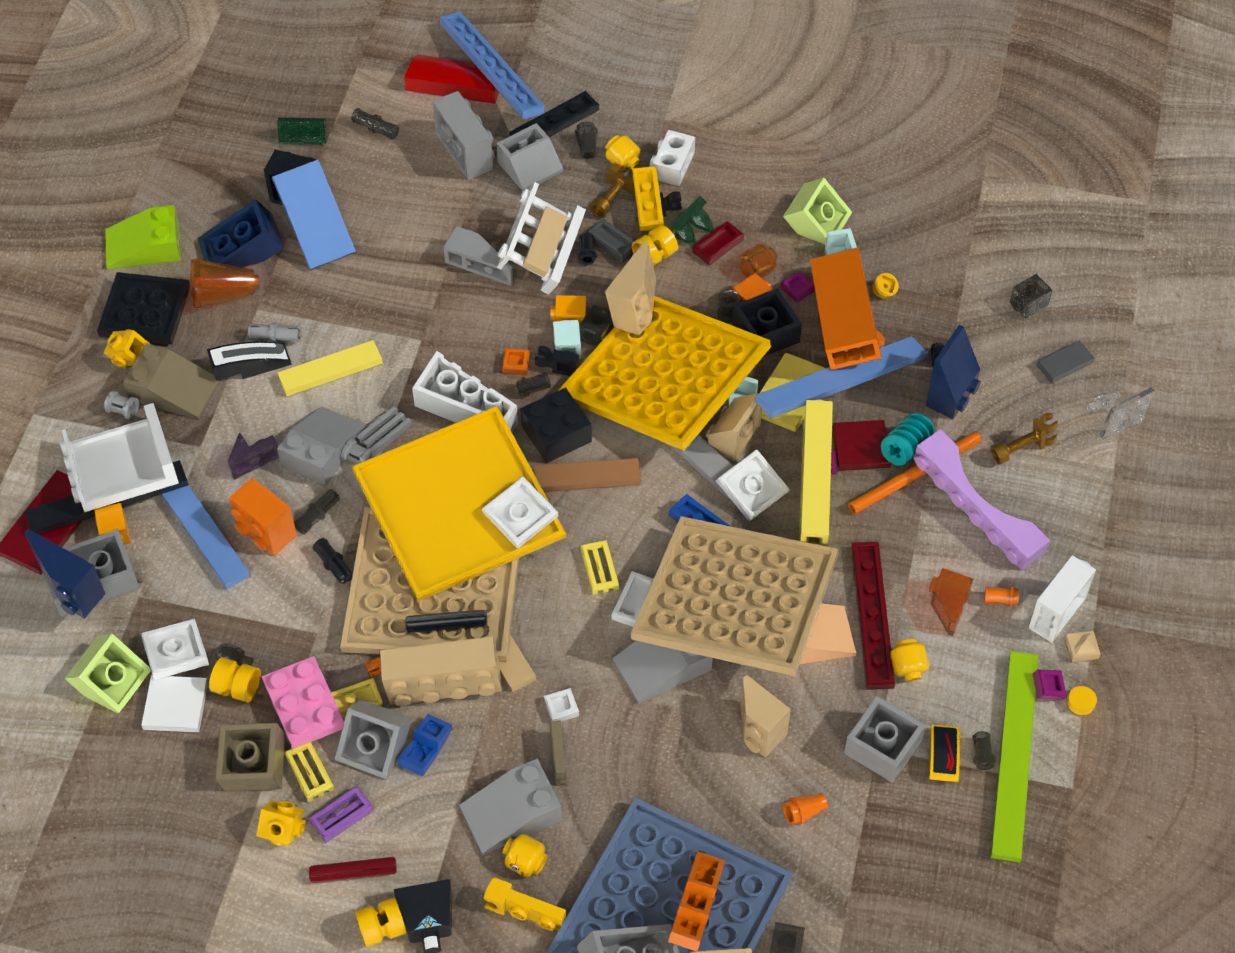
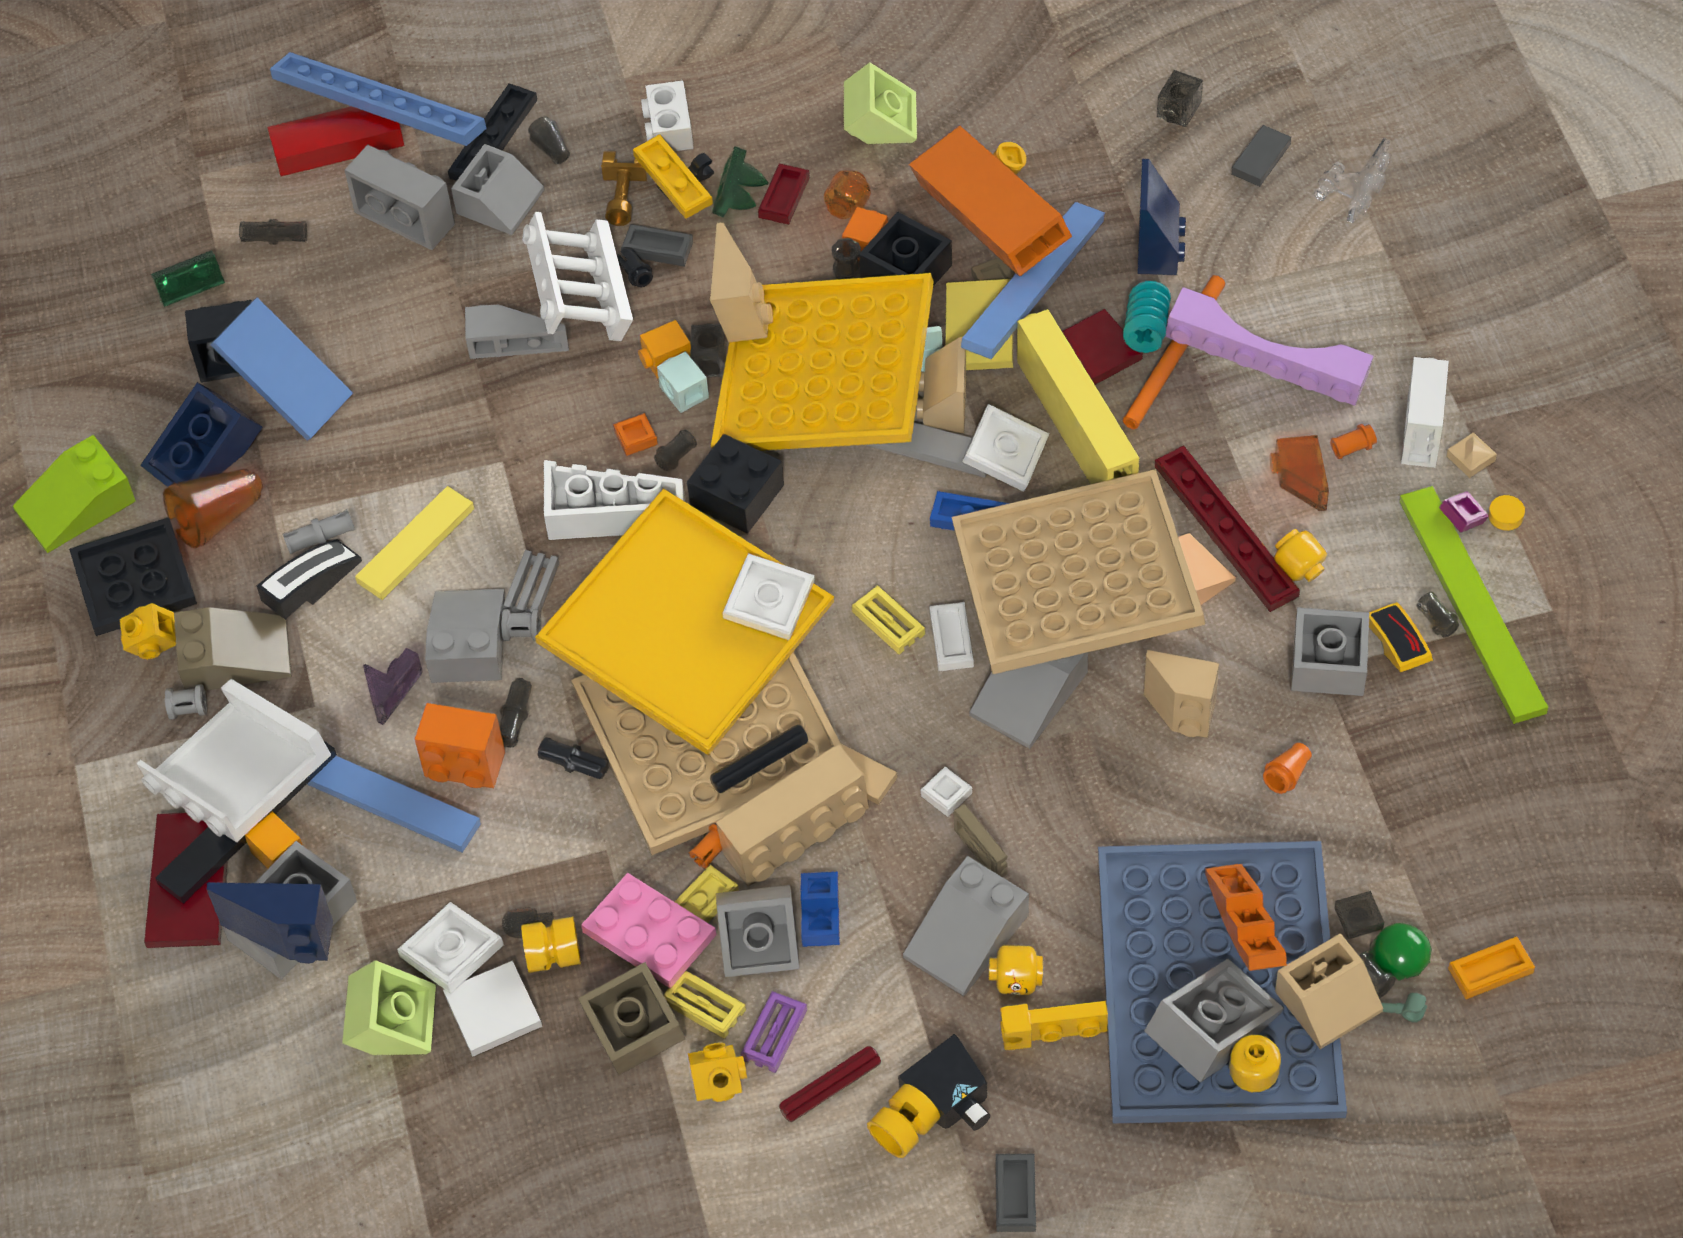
camera: 25 degrees left, 0 degrees up
(545, 241) = (588, 277): tan tile -> none
(560, 361) = (692, 410): black plate -> none
(588, 474) = (812, 520): medium nougat tile -> none
(622, 151) = (604, 134): yellow head -> none
(661, 243) = (704, 232): yellow wheel -> none
(797, 287) = (909, 202): magenta tile -> none
(839, 241) = (929, 131): light aqua panel -> none
(935, 349) = (1117, 209): black tile -> none
(1001, 452) = (1256, 286): pearl gold bar -> none

